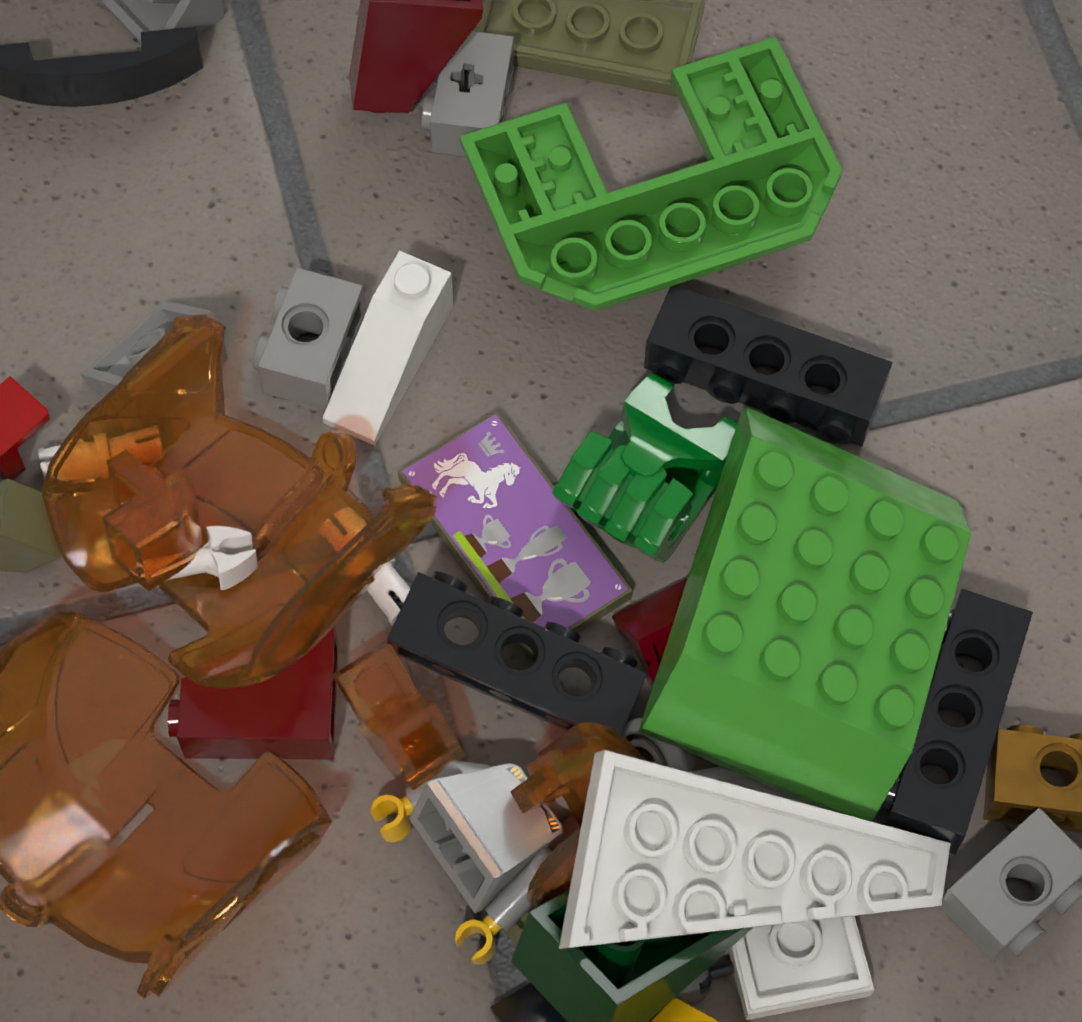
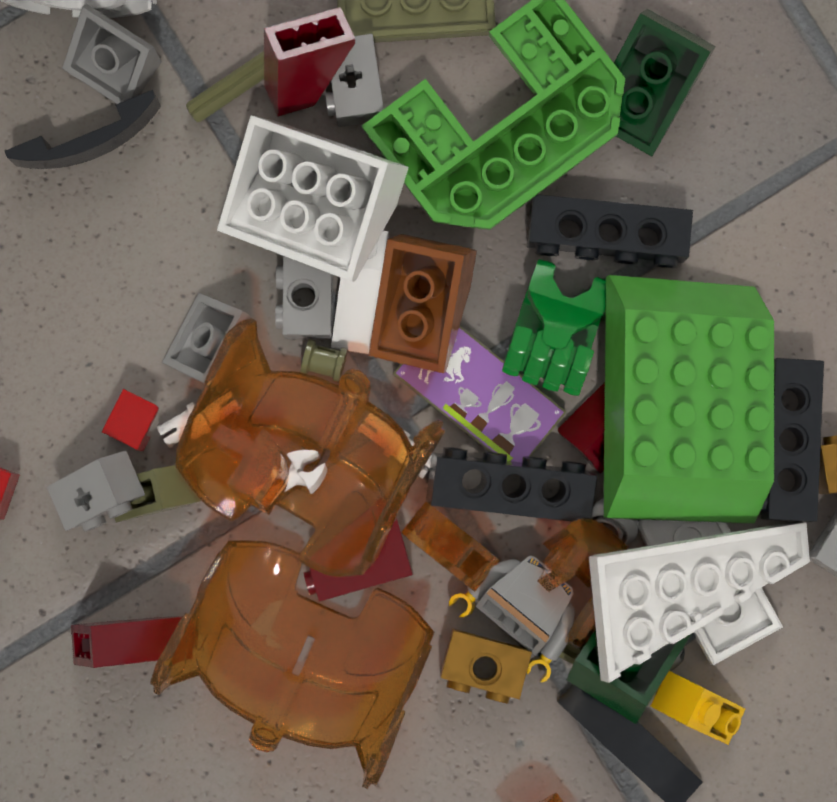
camera: 20 degrees left, 20 degrees up
(295, 66) = (227, 89): none -> olive axle
(301, 422) = (324, 360): none -> olive bush
(361, 198) = (310, 197): none -> white slope
(378, 878) = (510, 663): none -> pearl gold brick
(469, 379) = (421, 301): none -> dark orange slope
(891, 195) = (659, 73): none -> dark green slope

